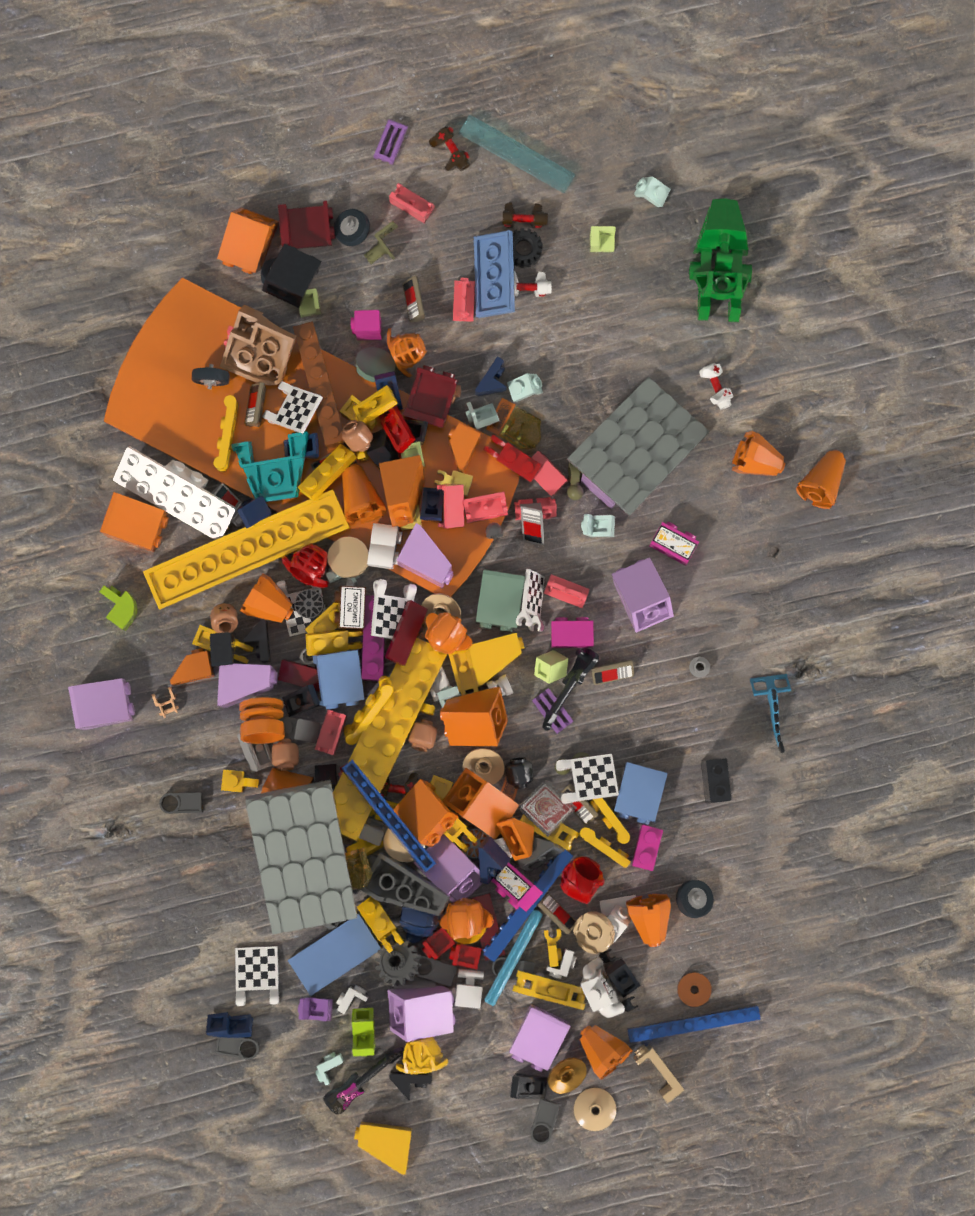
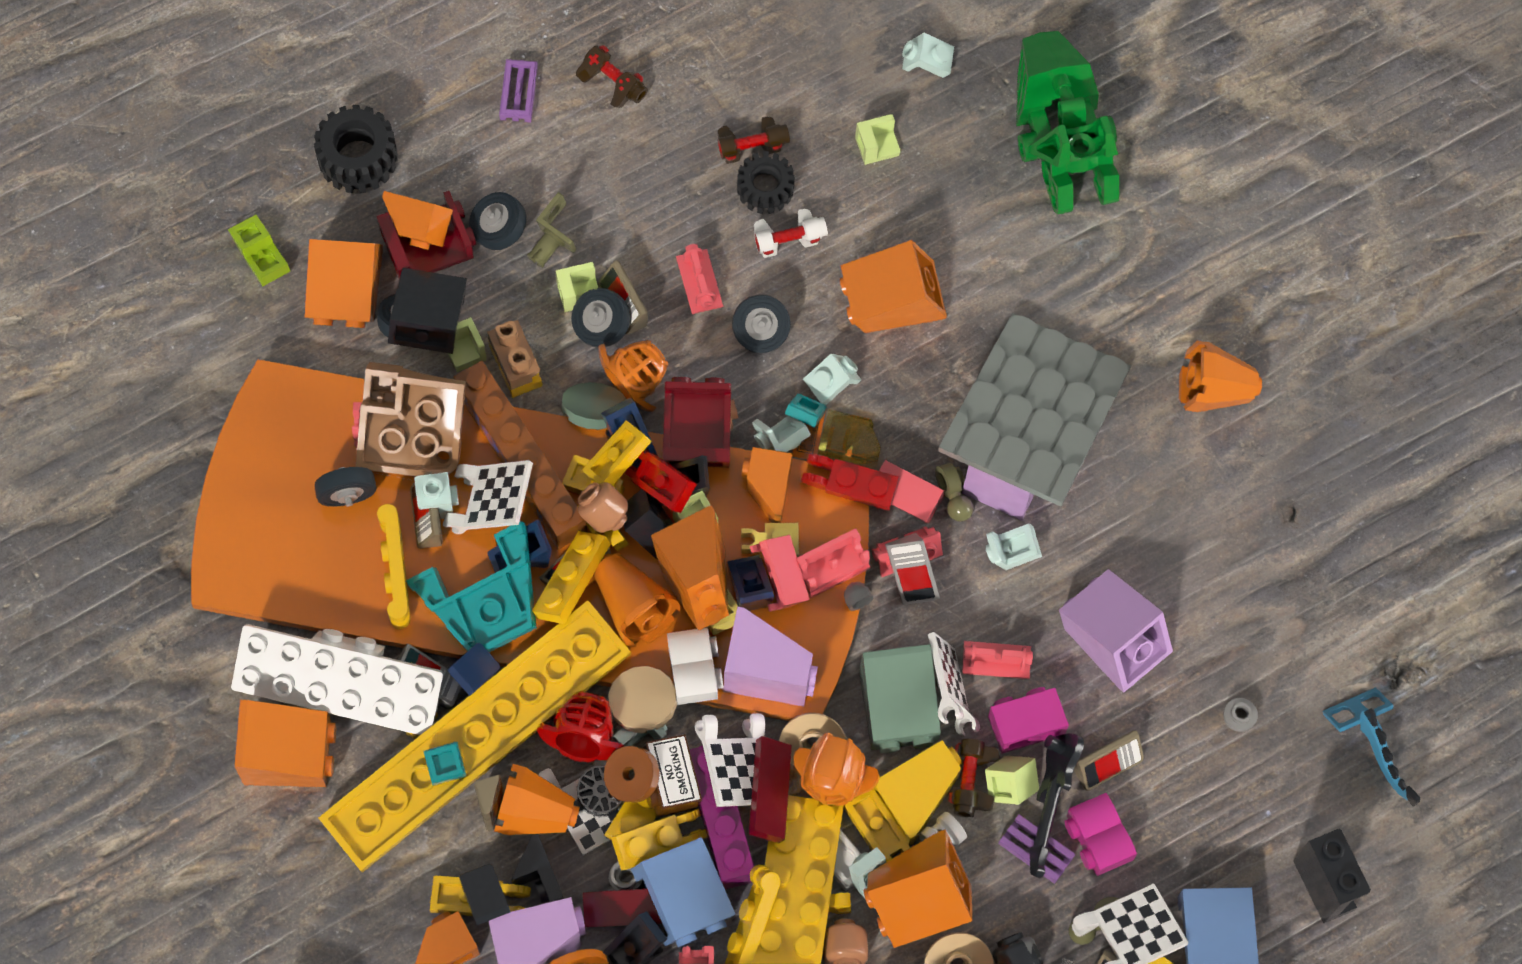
camera: 20 degrees left, 15 degrees down
(125, 607) = (303, 889): lime brick -> none
(203, 204) = (259, 250): none -> lime slope
(222, 562) = (445, 763): none -> teal tile
(224, 618) = (470, 850): nougat head -> none
(241, 591) = (489, 796): none -> dark tan slope
(262, 396) = (436, 492): none -> light aqua bracket
(276, 139) = (349, 127): none -> black tyre
(302, 213) = (418, 219): none -> orange slope
(319, 599) = (617, 774): none -> dark orange piece
(336, 320) = (514, 358): none -> medium nougat hips
(366, 325) = (565, 350): dark pink brick -> none
(388, 284) = (574, 282): none -> yellowish green panel
(396, 308) = (600, 317): none -> black wheel
(411, 203) = (576, 166): coral hinge -> none
(489, 384) = (779, 385): dark blue slope -> none
(492, 340) = (761, 323): none -> black wheel
(494, 274) = (734, 229): medium blue tile -> none
(501, 403) = (806, 410): none -> teal tile
(517, 153) = (712, 58): clear light blue plate -> none
(520, 669) = (965, 797): none -> dark brown piece
(579, 341) = (892, 289): none -> orange slope
(592, 714) = (1100, 835): none -> dark pink brick
(674, 543) = (1136, 540): brick -> none
(722, 396) = (1131, 310): white piece -> none
(823, 480) = (1326, 388): orange cone -> none

